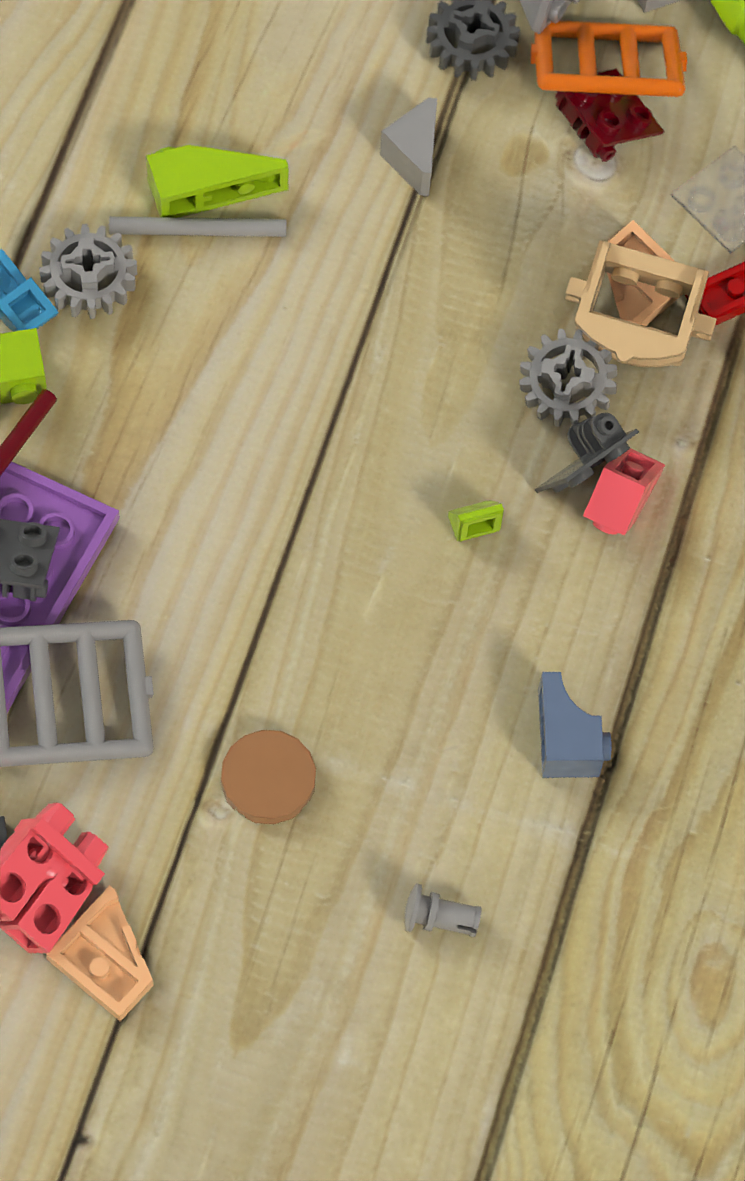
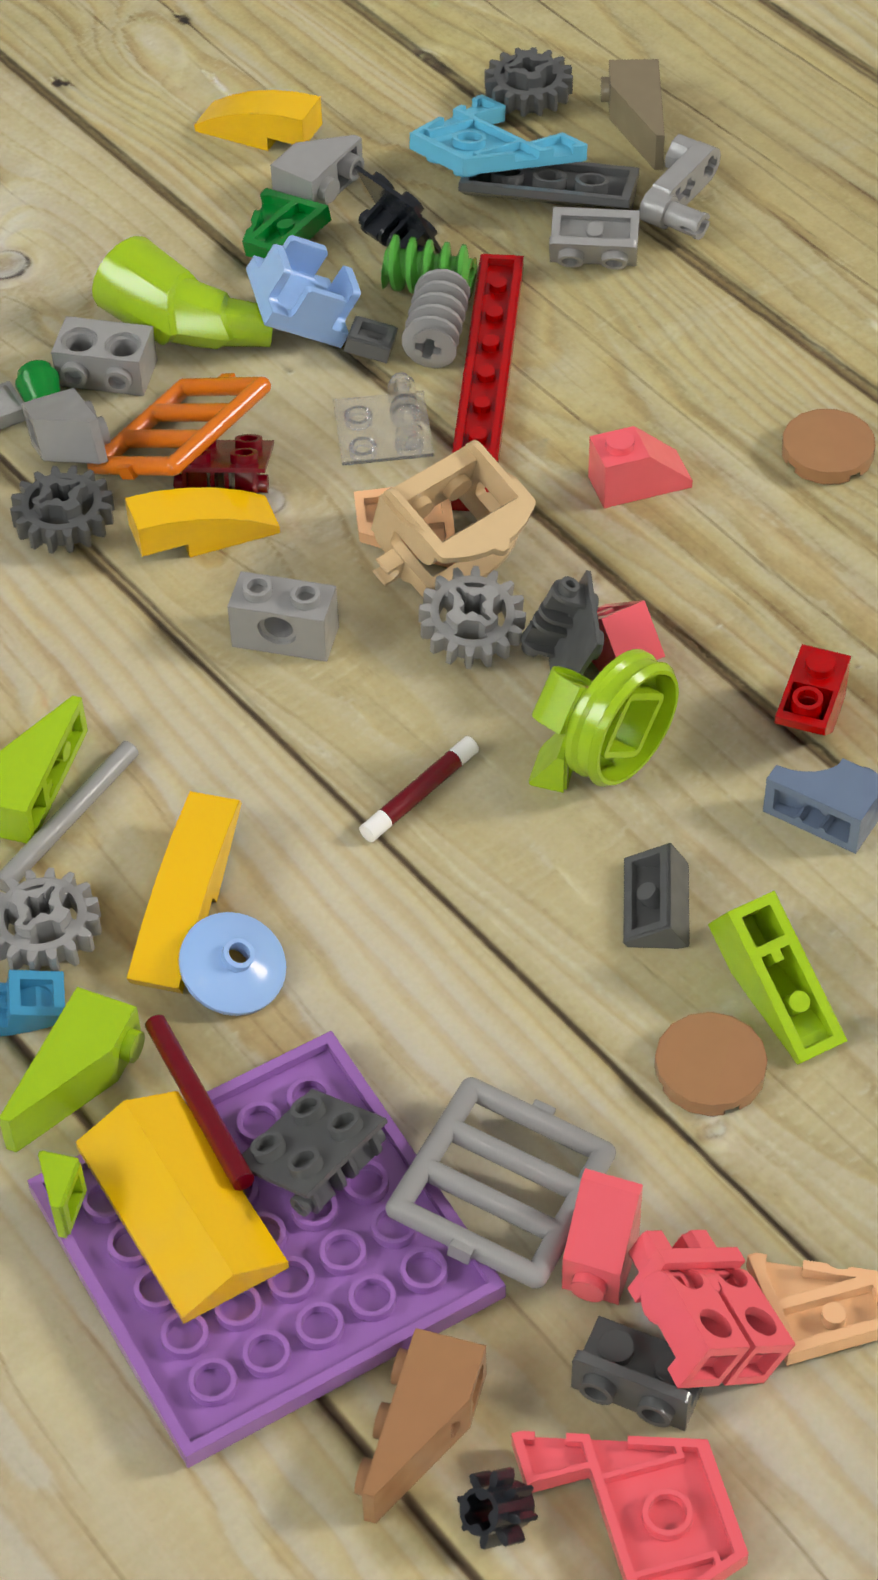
camera: 50 degrees left, 15 degrees down
(51, 778) = (600, 1236): none -> coral slope
(137, 437) = (226, 984): none -> light blue dish
(177, 341) = (184, 888): none -> yellow slope
(368, 781) = (777, 976): none -> lime slope
(385, 440) = (419, 789): none -> dark red bar
(395, 661) = (656, 899): none -> dark grey slope
(410, 143) = (142, 607): light grey slope -> none
(474, 249) = (283, 616): none -> light grey brick
(496, 509) = (614, 719): none -> lime piece
(531, 133) = (199, 519): none -> yellow slope
(657, 663) = (814, 691): none -> red slope

